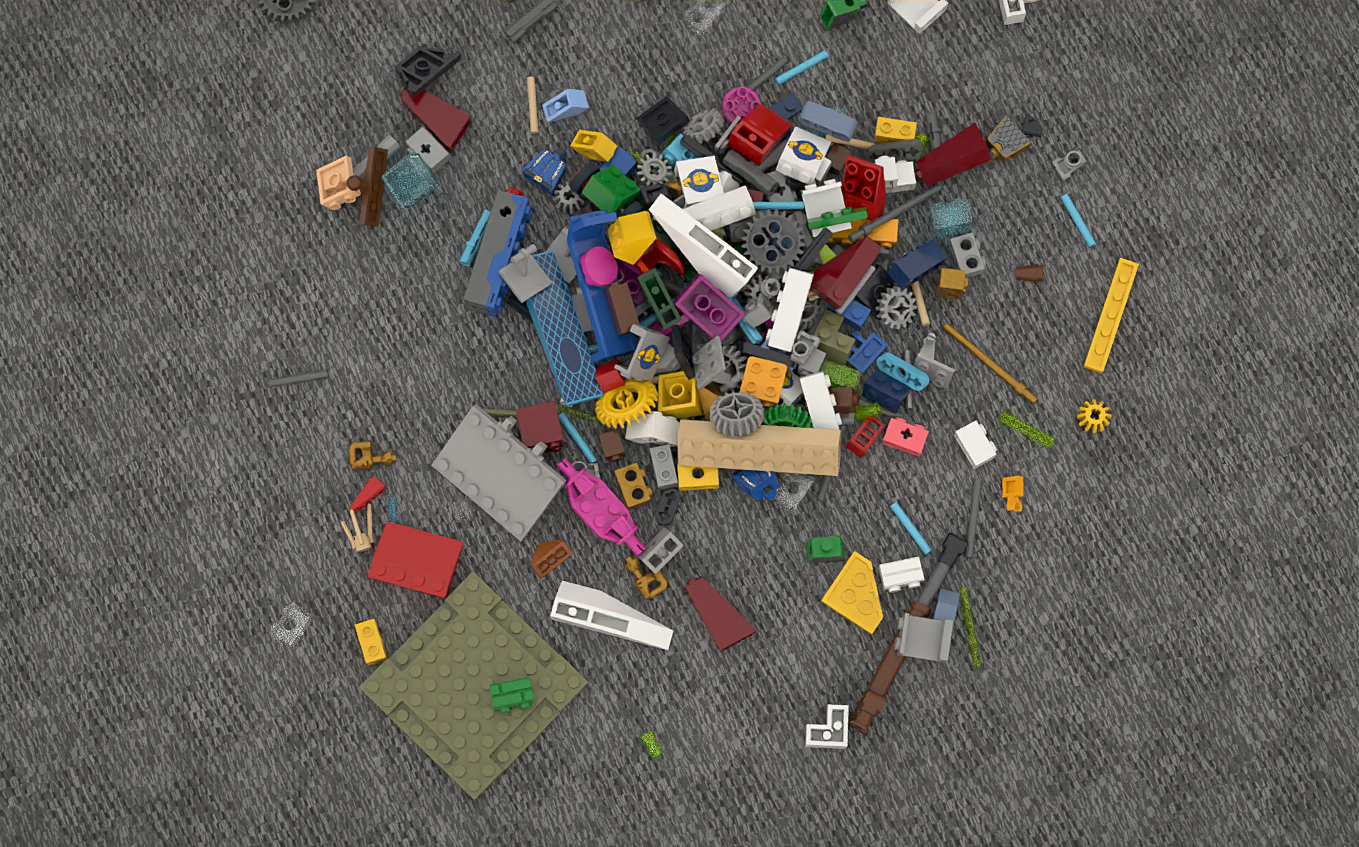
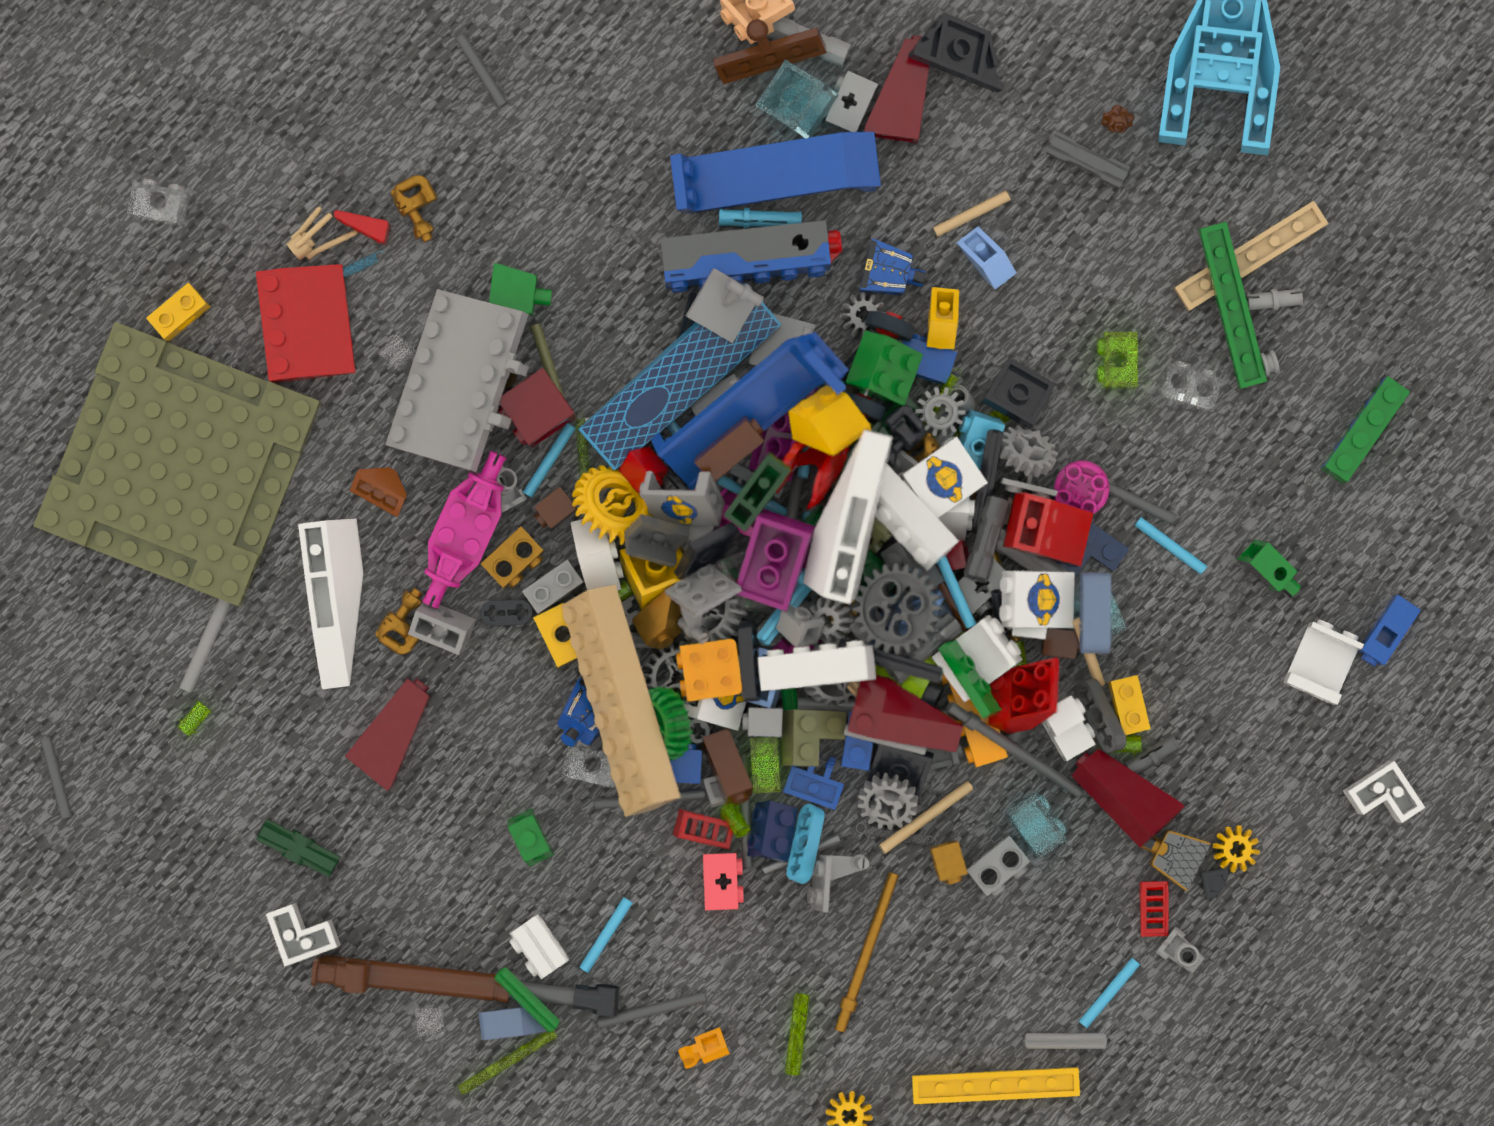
camera: 65 degrees right, 10 degrees up
(451, 212) = (775, 171): none -> blue panel
(453, 411) = (517, 290): none -> green torso
(512, 694) = (178, 518): green brick -> none
(599, 266) = (770, 396): dark pink tile -> none
(611, 725) = (205, 645): none -> light grey piece
(661, 43) = (1127, 373): none -> clear neon green brick
(661, 381) = (655, 540): none -> dark grey bracket
(736, 414) = (641, 638): light grey gear -> none
(764, 287) = (828, 624): light grey bush -> none
(768, 709) = (297, 847): none -> dark green piece
(805, 344) = (780, 705): light grey plate -> none
(820, 401) = (711, 755): white brick -> none
(856, 594) = (490, 898): yellow plate -> none
(917, 264) = (956, 805): dark blue brick -> none
(922, 669) = (429, 1020): none -> clear slope
(923, 638) = (463, 1008): light grey panel -> none
(934, 594) = (527, 999): none -> green axle
(975, 444) = (748, 975): white brick -> none
(1022, 101) = (1226, 845): none -> yellow gear
(1029, 273) = (1009, 957): reddish brown cone -> none
(1031, 176) = (1164, 898): none -> red slope
(1099, 260) = (1065, 1040): none -> light grey axle

